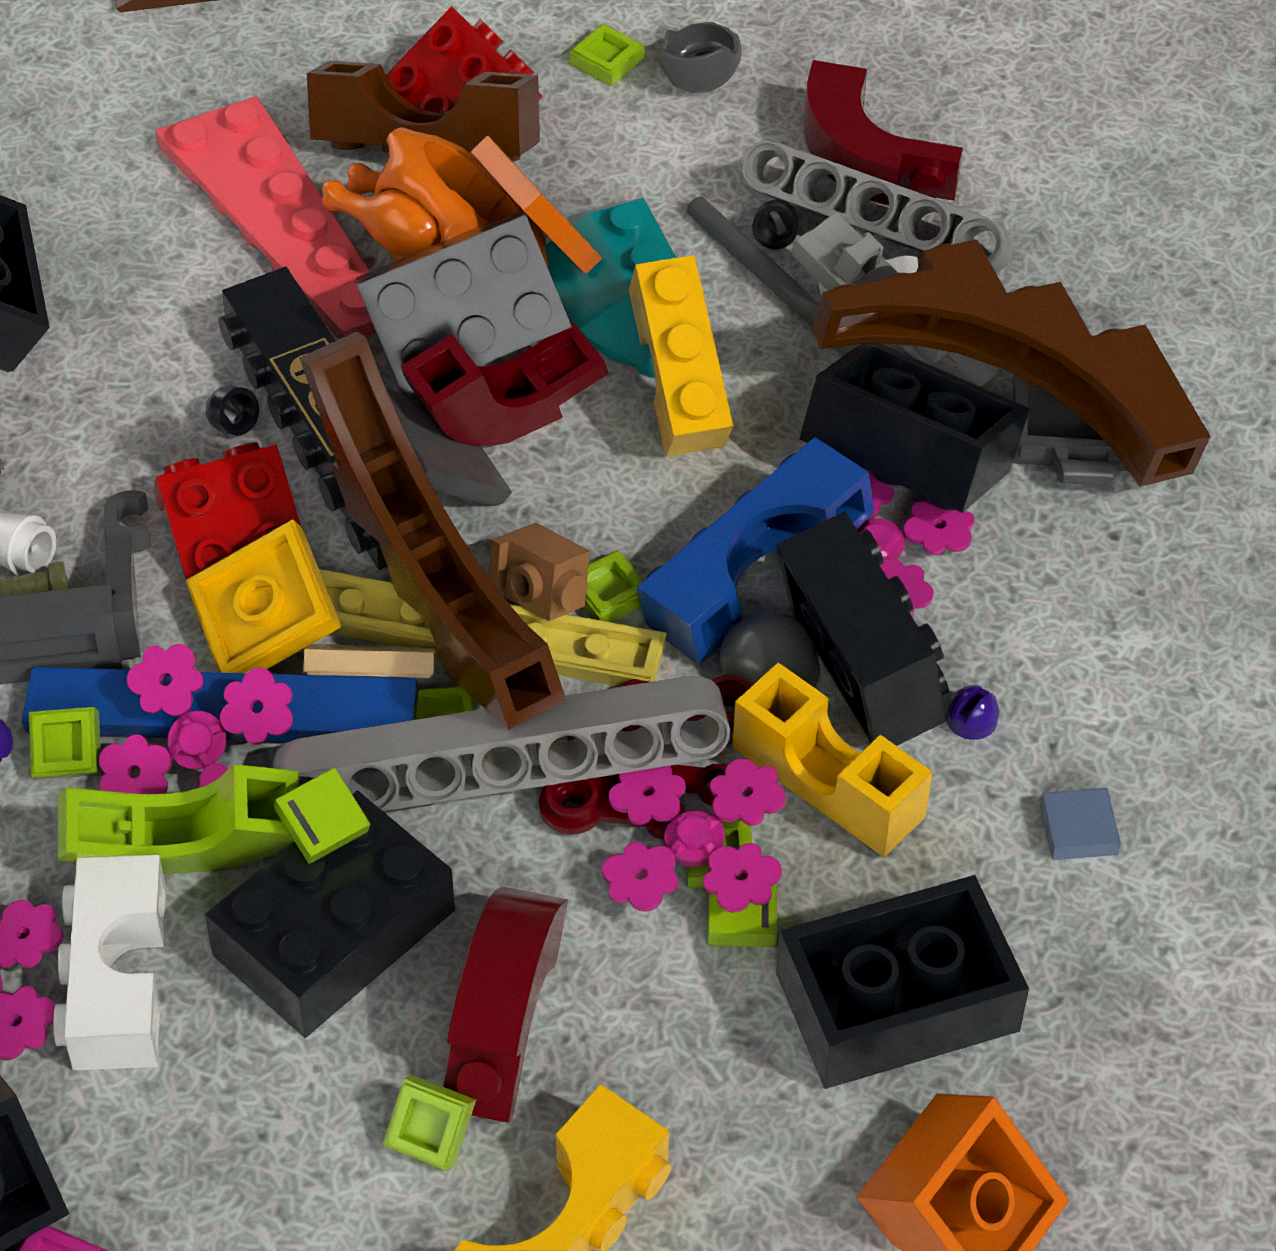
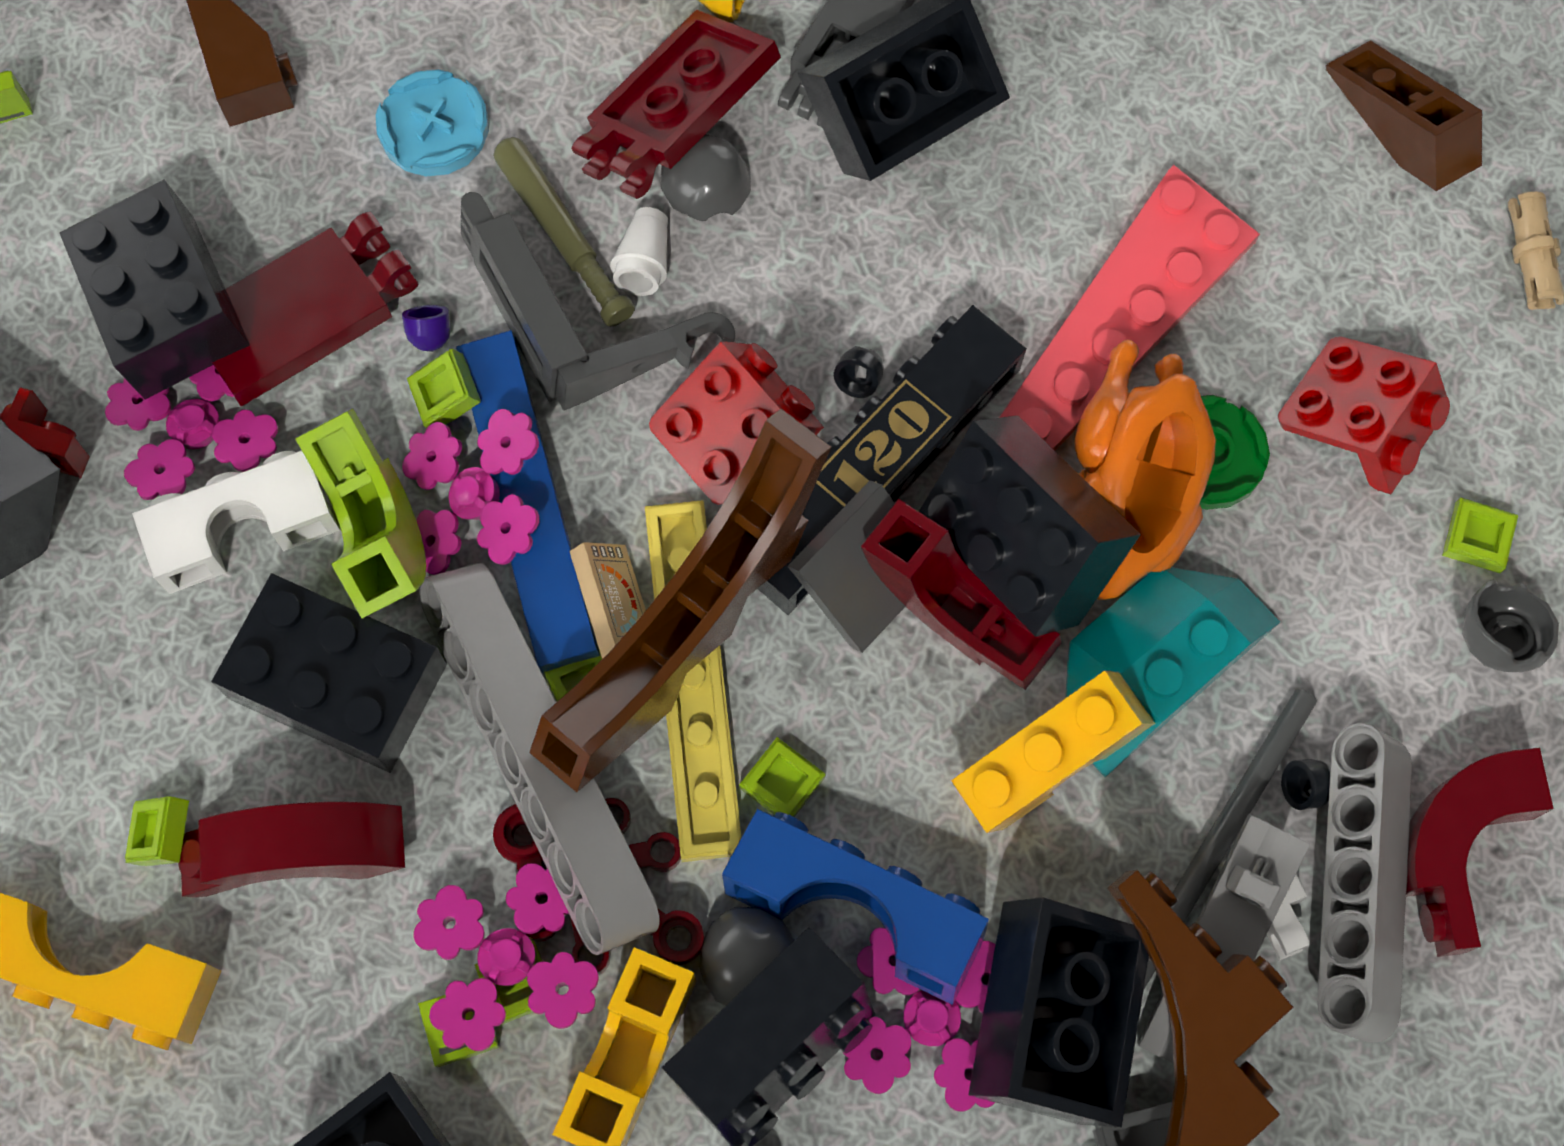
camera: 70 degrees right, 20 degrees up
(263, 602) = (634, 487): yellow plate -> none
(321, 815) = (372, 629): lime tile -> none
(359, 106) = (1269, 336): reddish brown arch -> none
(536, 204) = (1168, 545): orange tile -> none
(540, 570) = (754, 713): medium nougat brick -> none

